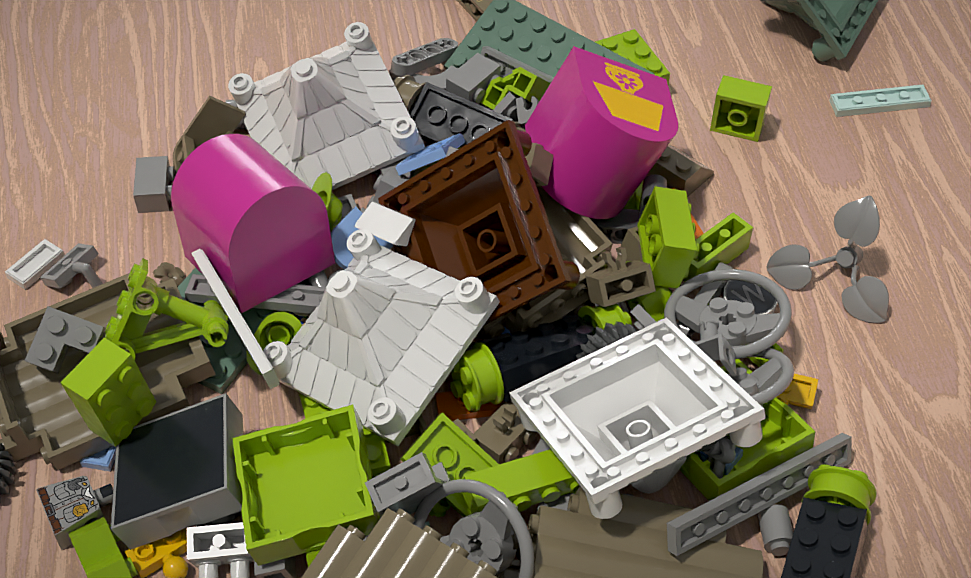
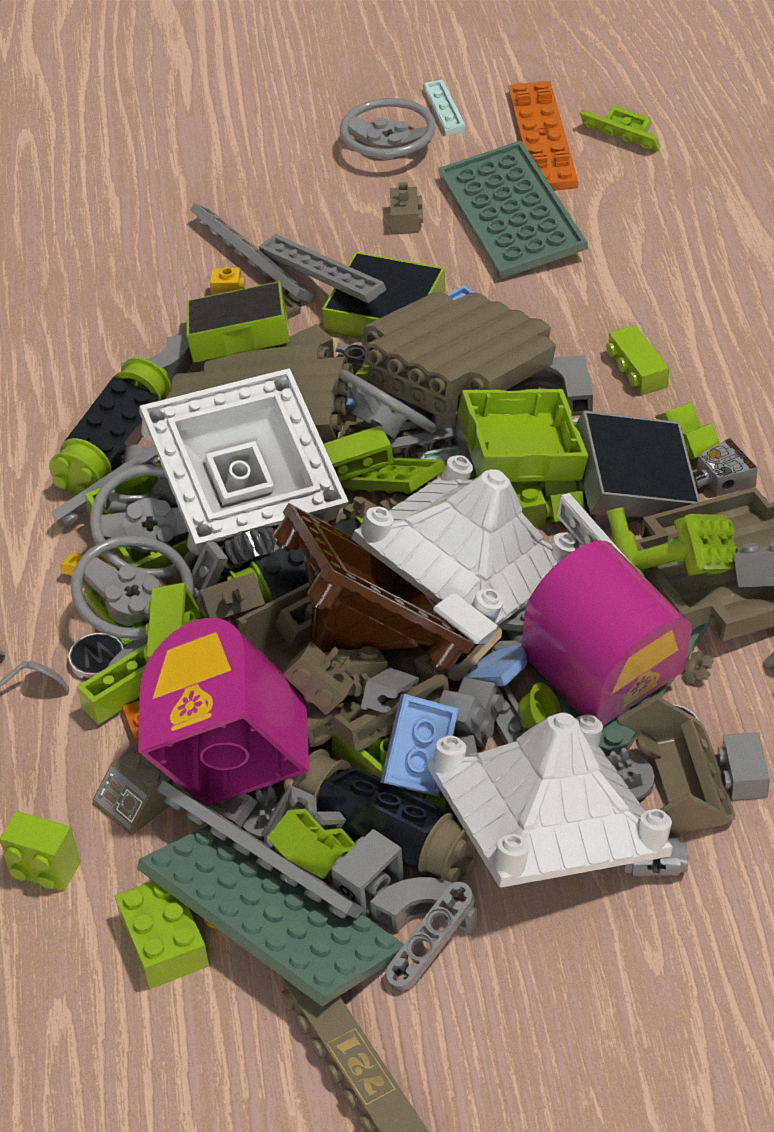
camera: 175 degrees left, 5 degrees down
(109, 392) = (703, 474): lime brick -> none
(406, 484) = (431, 421): light grey panel -> none
(716, 346) = (158, 529): light grey bracket -> none
(775, 417) = (119, 502): none -> light grey plant

